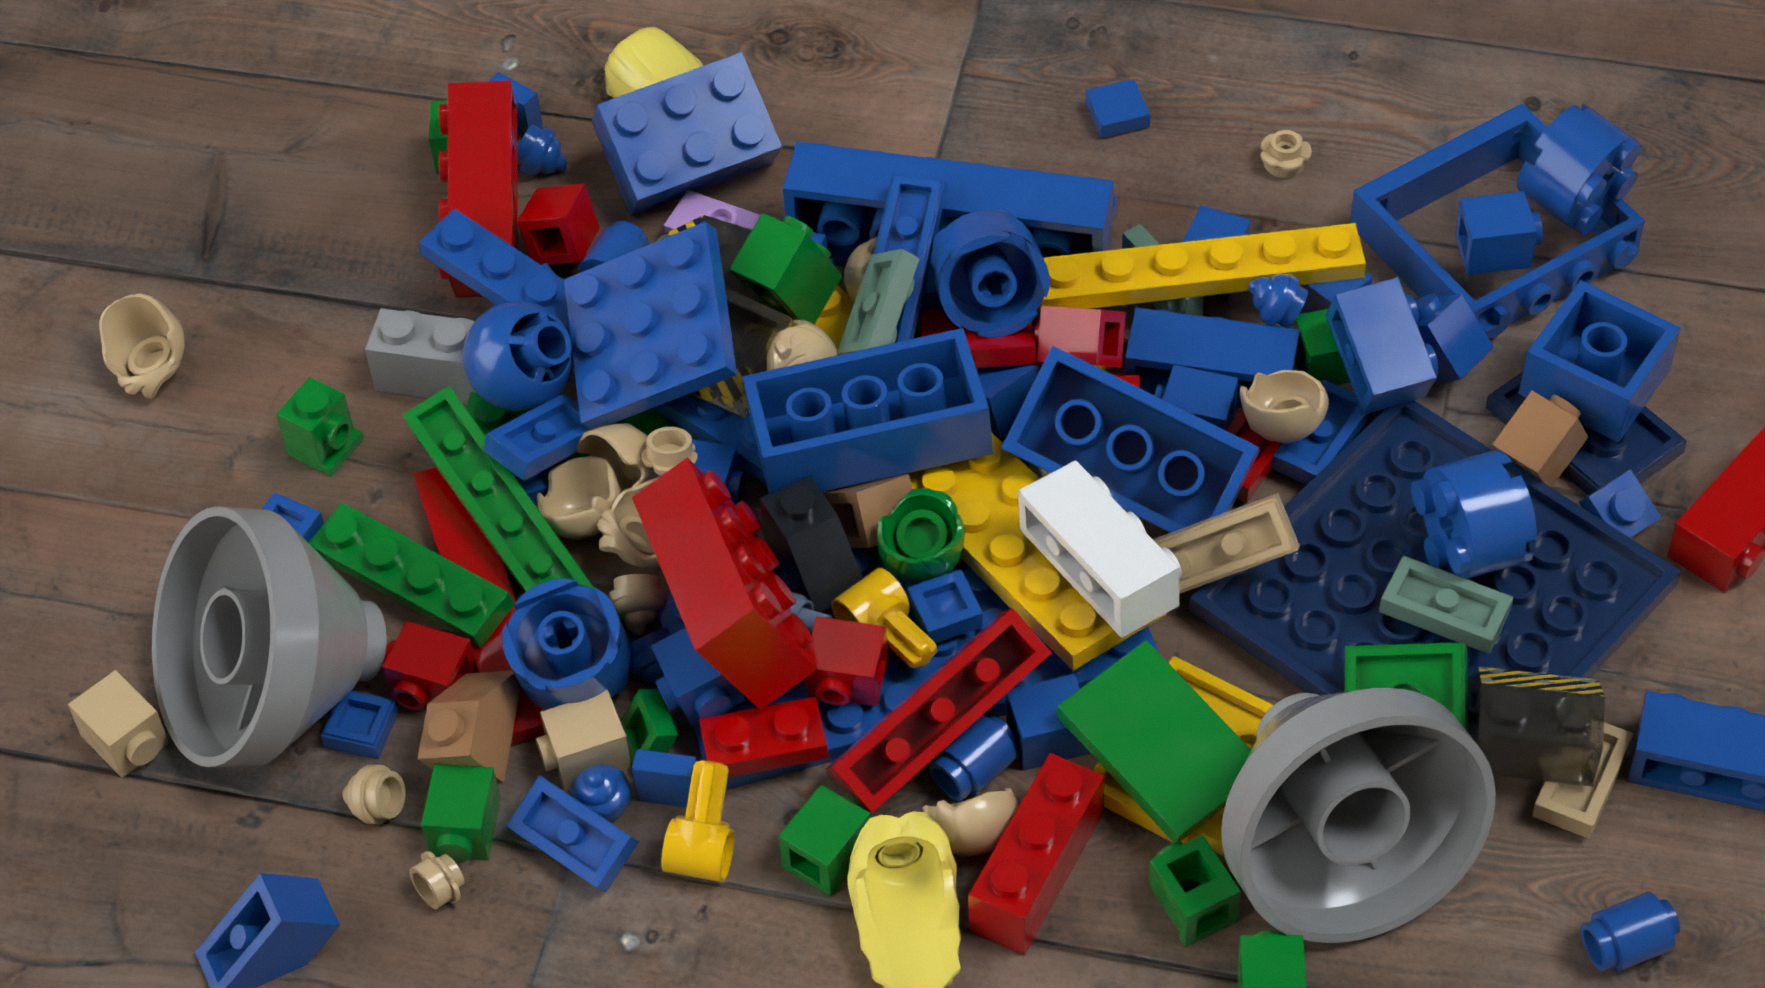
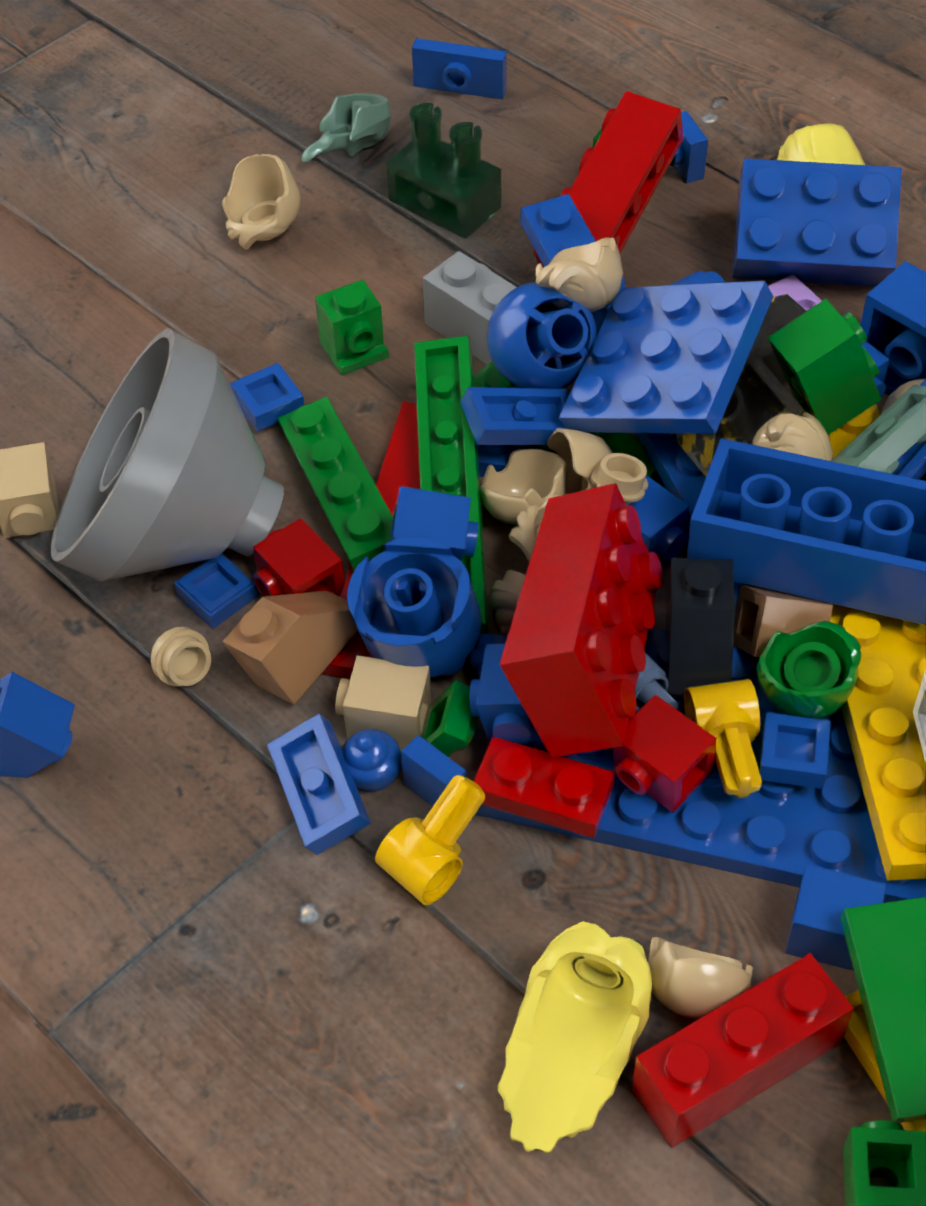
camera: 30 degrees right, 0 degrees up
(174, 220) = (351, 125): none -> sand green piece
(239, 118) = (459, 68): none -> blue plate
(306, 244) = (444, 179): none -> clear green brick
(437, 879) = (178, 761): tan plate -> none
(461, 812) = (236, 711): green brick -> none
(528, 280) = (585, 274): none -> tan hair
(532, 562) = (435, 517): none -> blue brick
(548, 150) = (684, 191): blue plate -> none
(558, 224) = (658, 250): red brick -> none
(822, 838) = (539, 909): green brick -> none
(939, 710) = (723, 849): red brick -> none
(974, 758) = (738, 914): blue brick -> none

